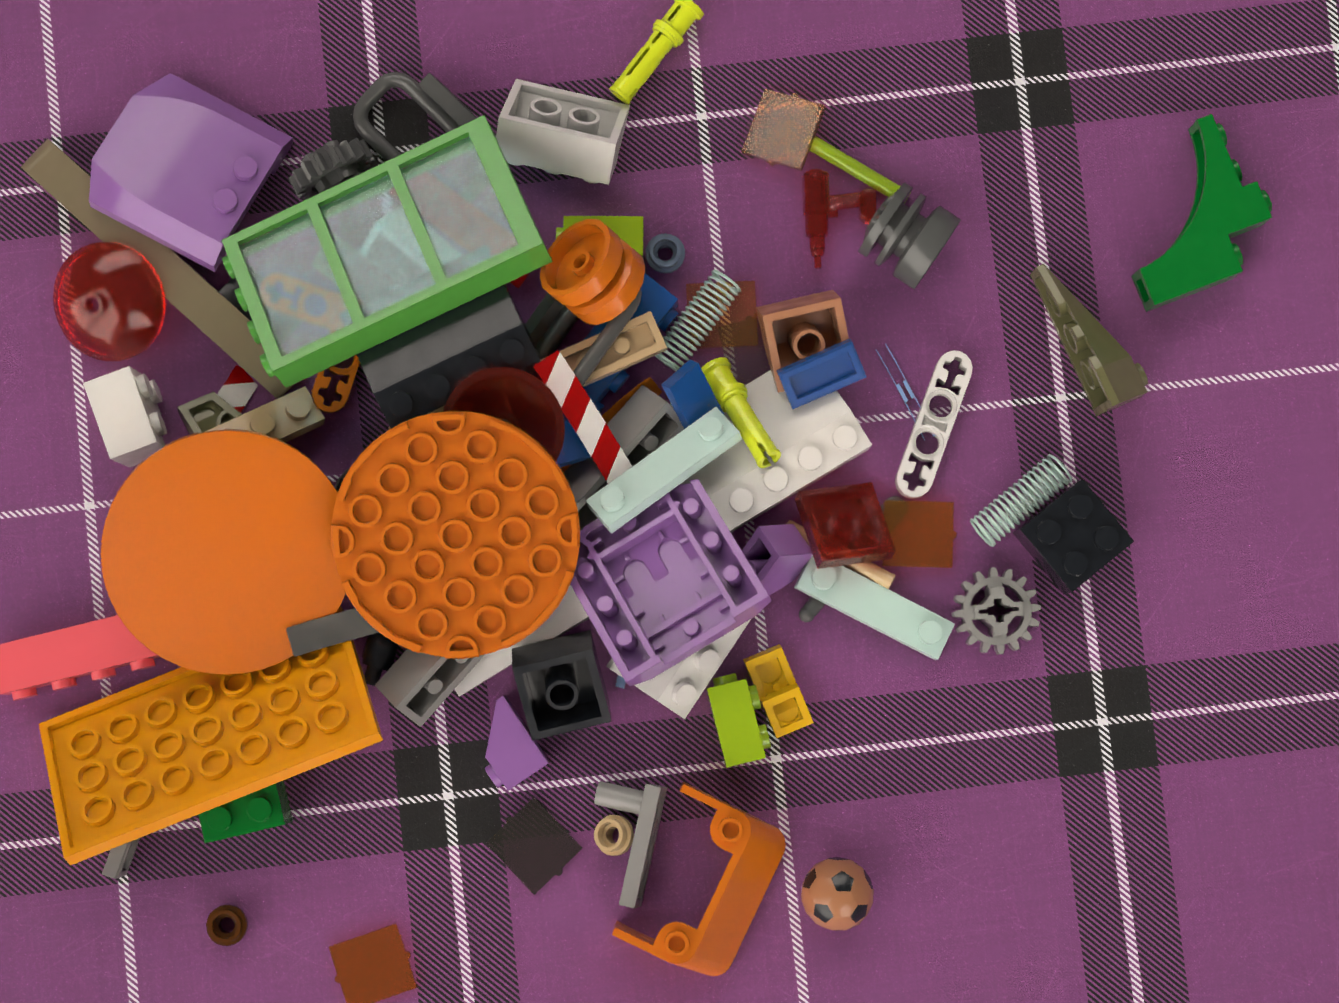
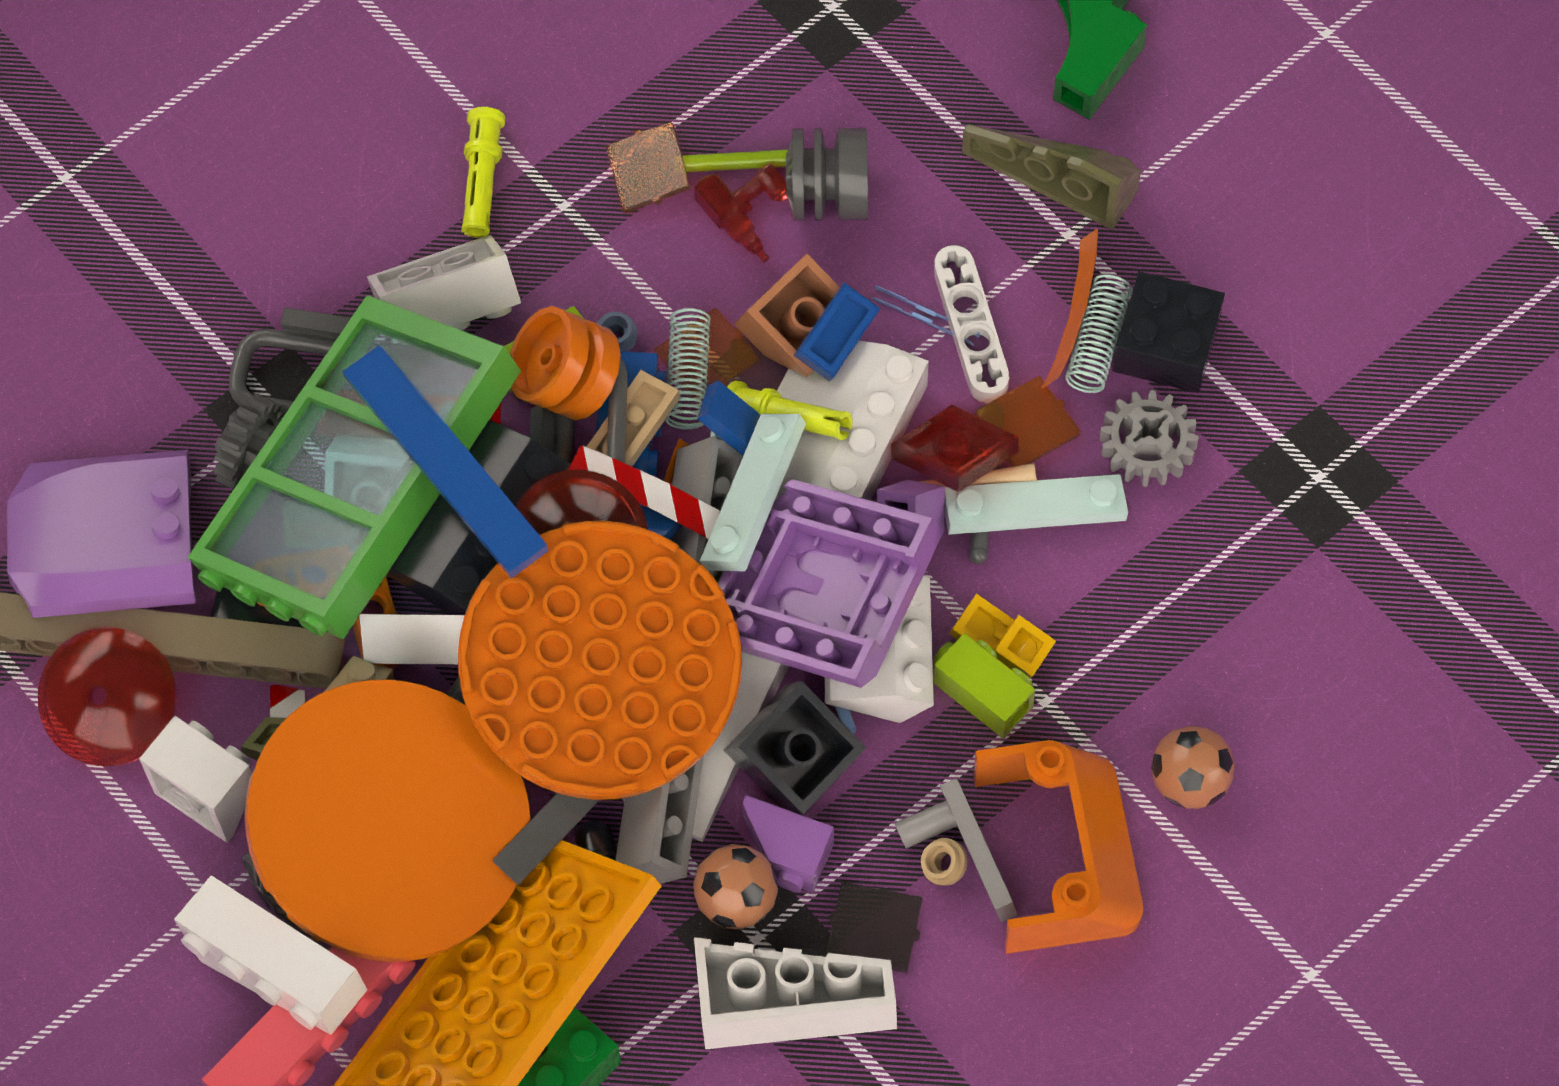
camera: 30 degrees left, 20 degrees down
(81, 603) = (269, 957): none -> white wedge
(345, 411) = (410, 638): none -> white sticker
(423, 856) = (789, 995): none -> white wedge
(436, 309) = (445, 461): none -> blue tile
(450, 758) = (735, 886): none -> nougat piece
(1019, 469) = (1082, 287): none -> orange sticker

